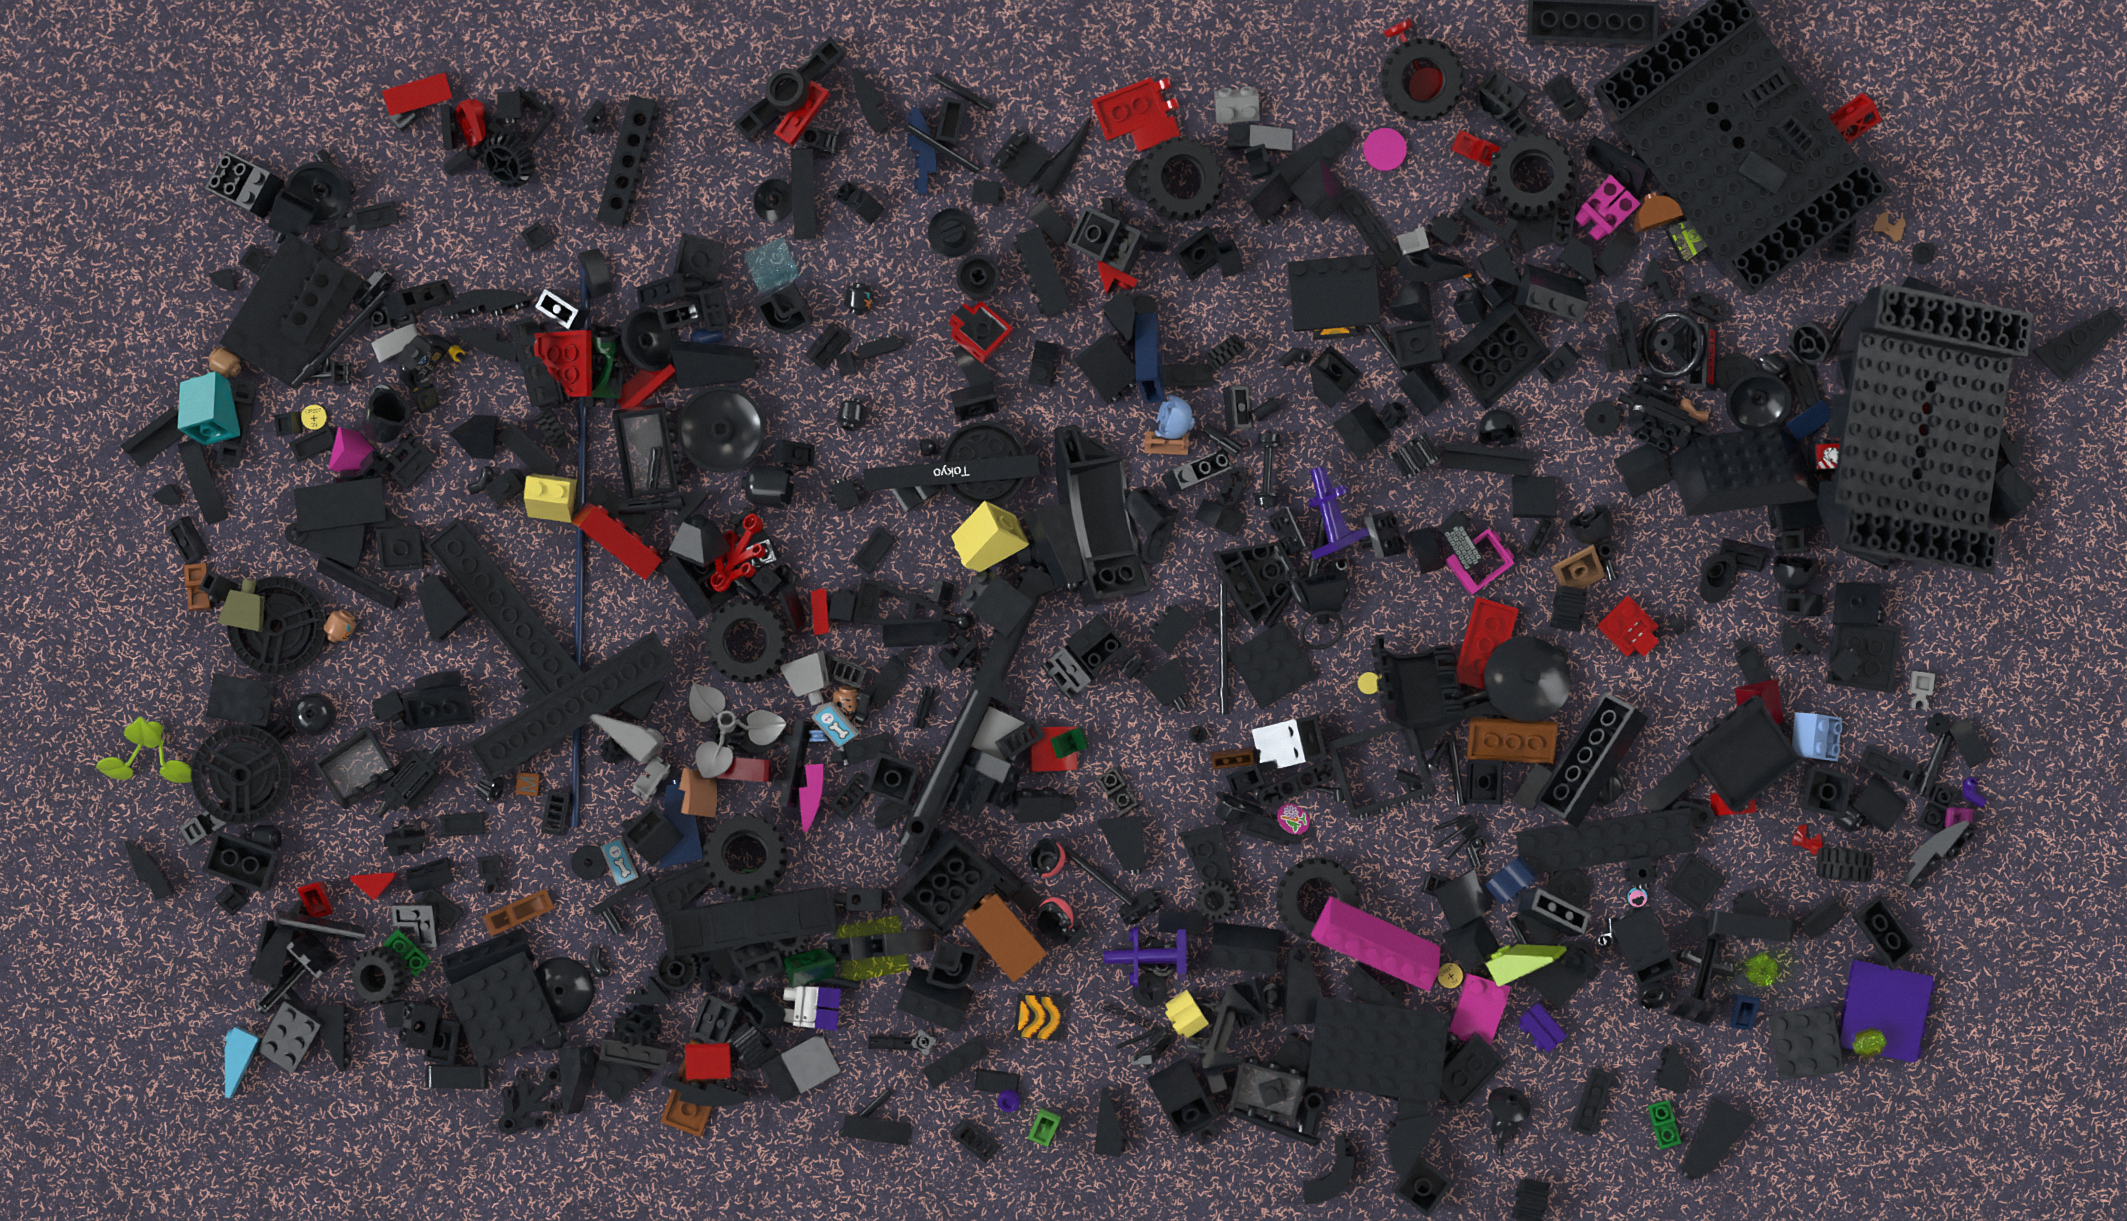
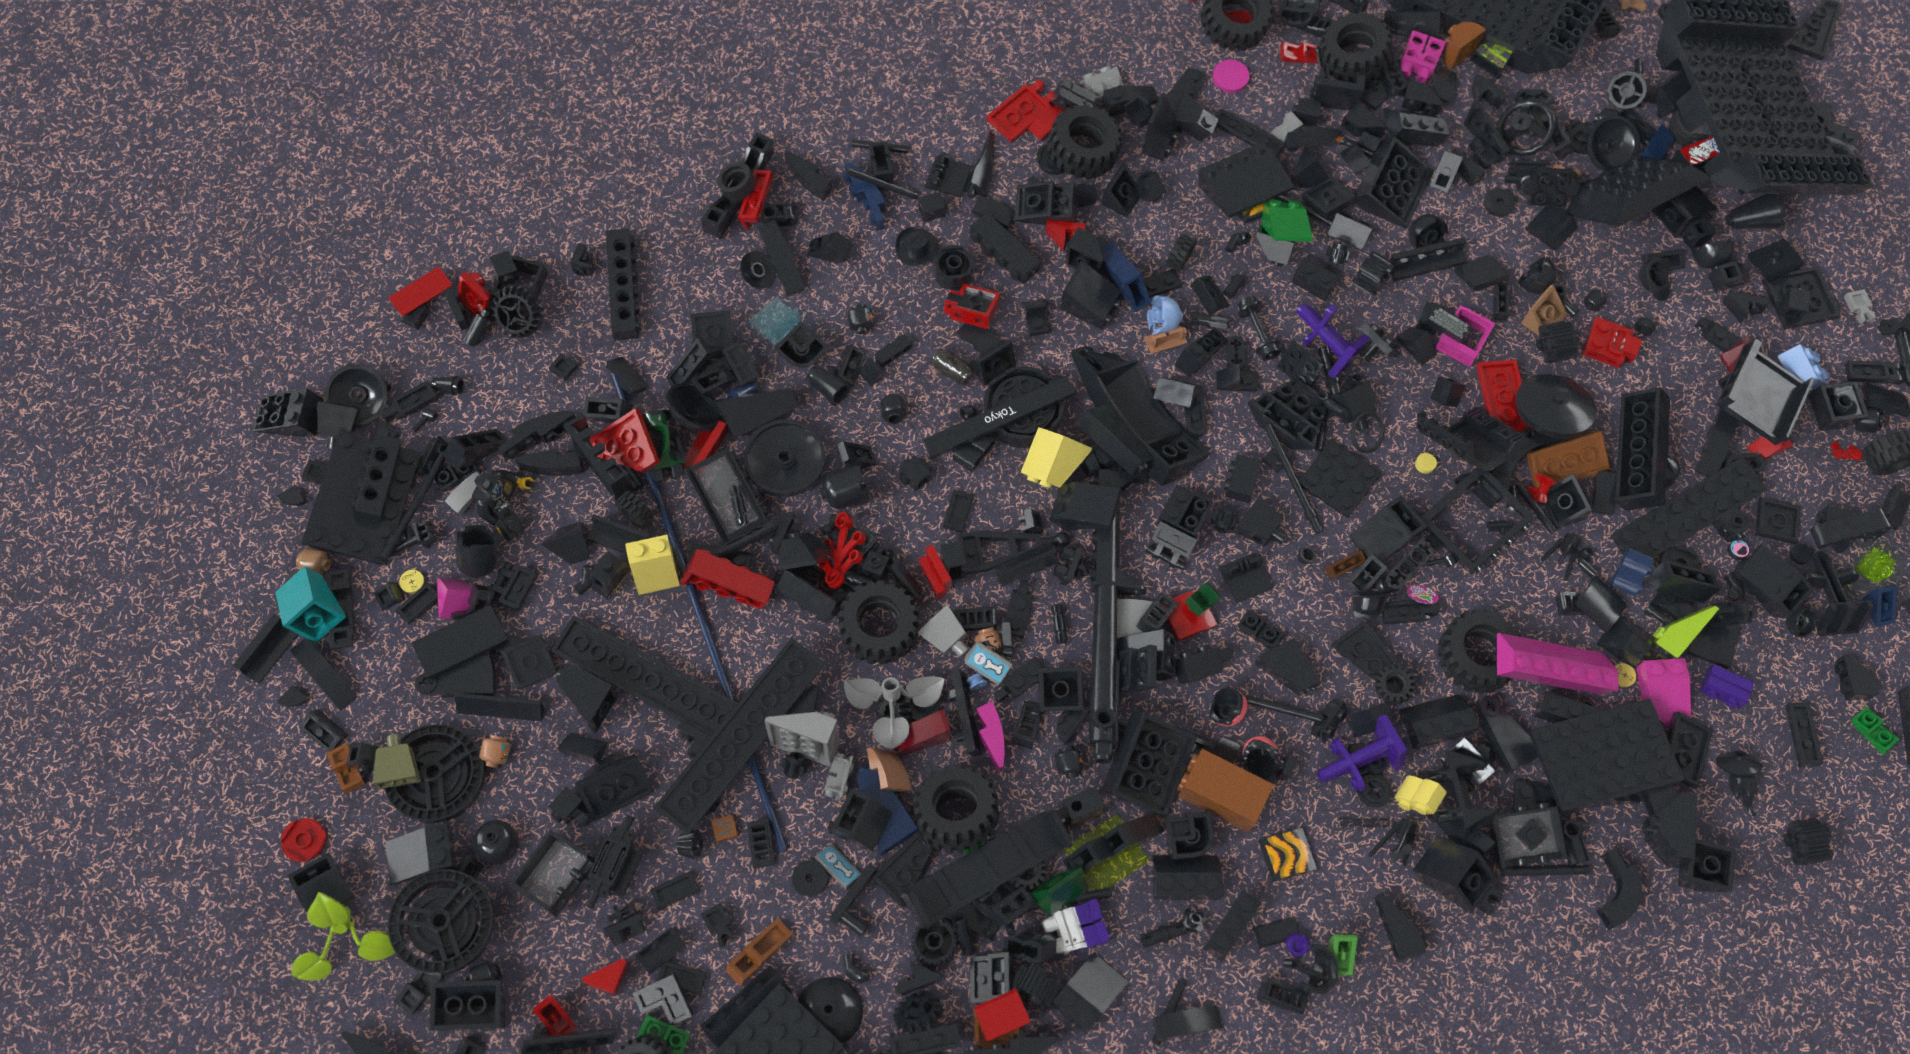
camera: 25 degrees left, 20 degrees down
(140, 648) = (309, 845): none -> red tile
(143, 696) = (319, 876): none -> black slope
(384, 238) = (428, 414): none -> black hand
(415, 213) = (451, 385): none -> black cone
(423, 654) = (583, 747): none -> black slope
(795, 361) = (827, 384): none -> black plant
(872, 849) = (1069, 762): none -> black head
(936, 402) = (952, 366): none -> clear smoke piece
(1014, 1134) = (1322, 957): none -> black helmet
(1128, 732) = (1246, 577): none -> black hinge
(1192, 118) = (1070, 94): none -> black brick
(1349, 365) = (1286, 221): none -> green slope
(1429, 616) = (1447, 392): none -> black panel
(1466, 761) = (1540, 493): none -> red piece
(1585, 368) = (1469, 170): none -> black slope
(1640, 573) = (1594, 300): none -> black piece

